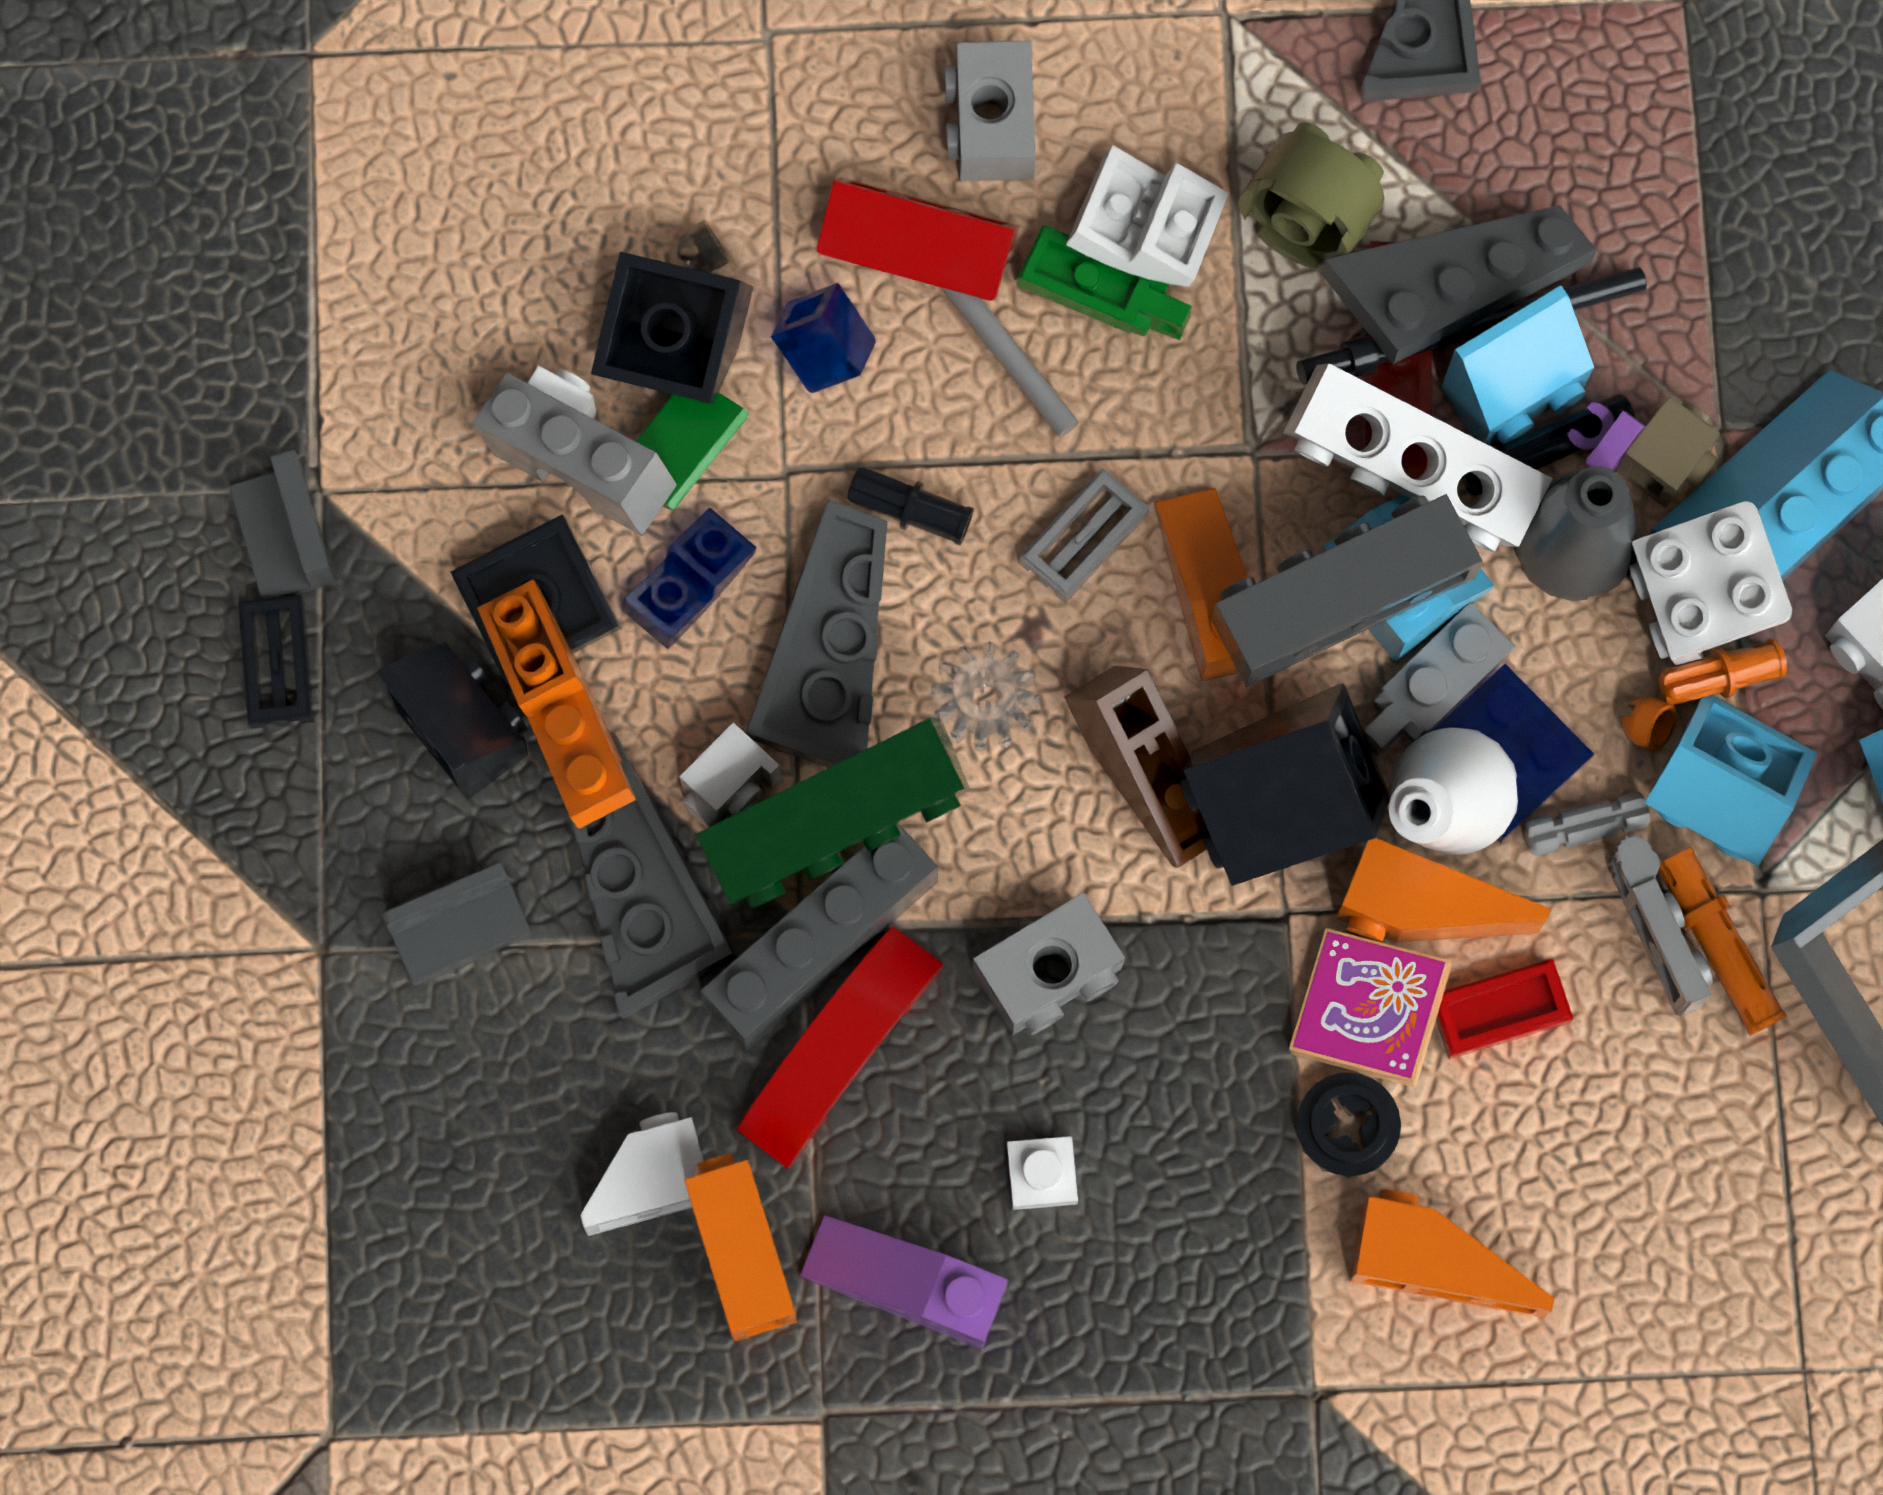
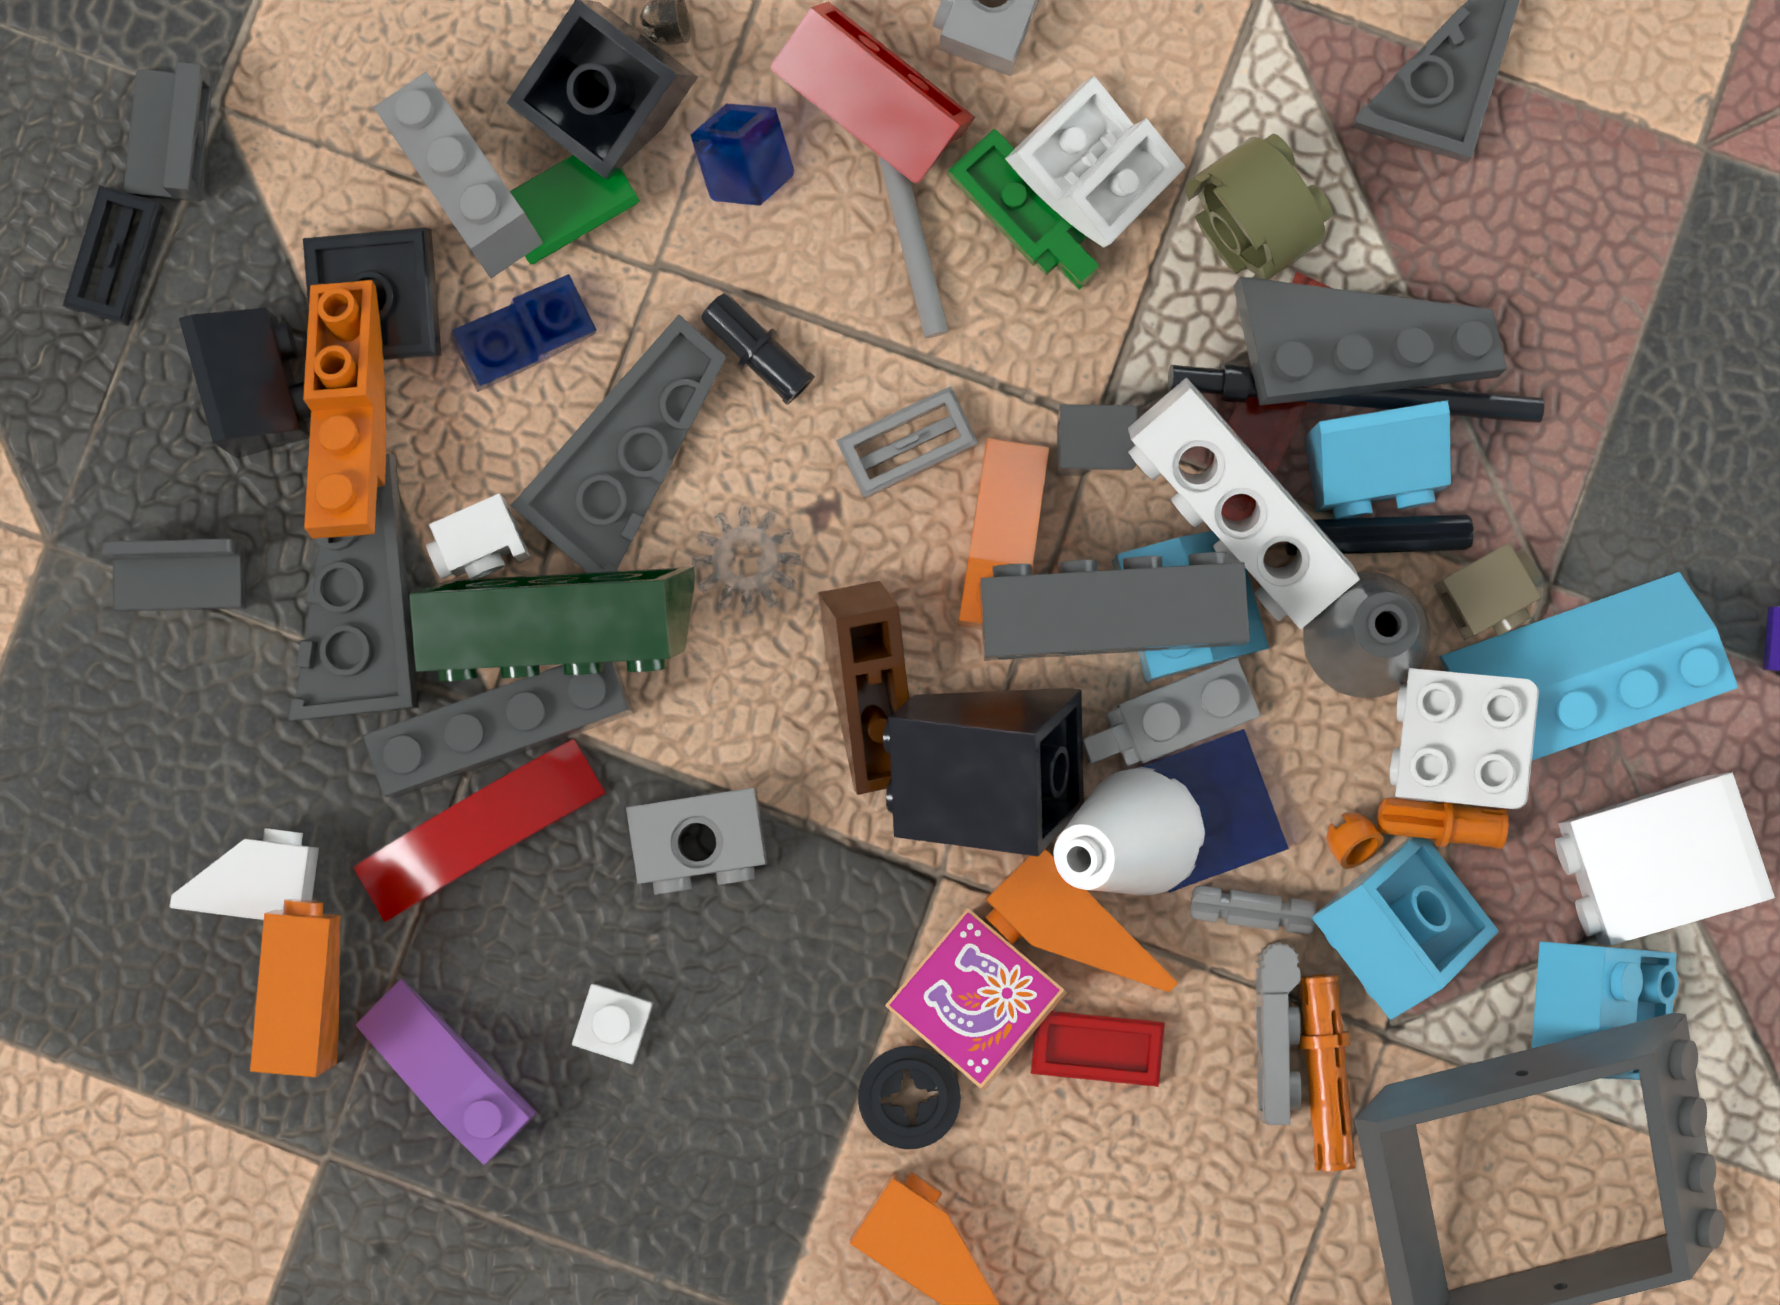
camera: 25 degrees right, 10 degrees up
(565, 388) = (476, 111): white plate -> none
(1253, 458) = (1094, 438): none -> dark grey panel
(1613, 439) = (1437, 561): medium lavender tile -> none

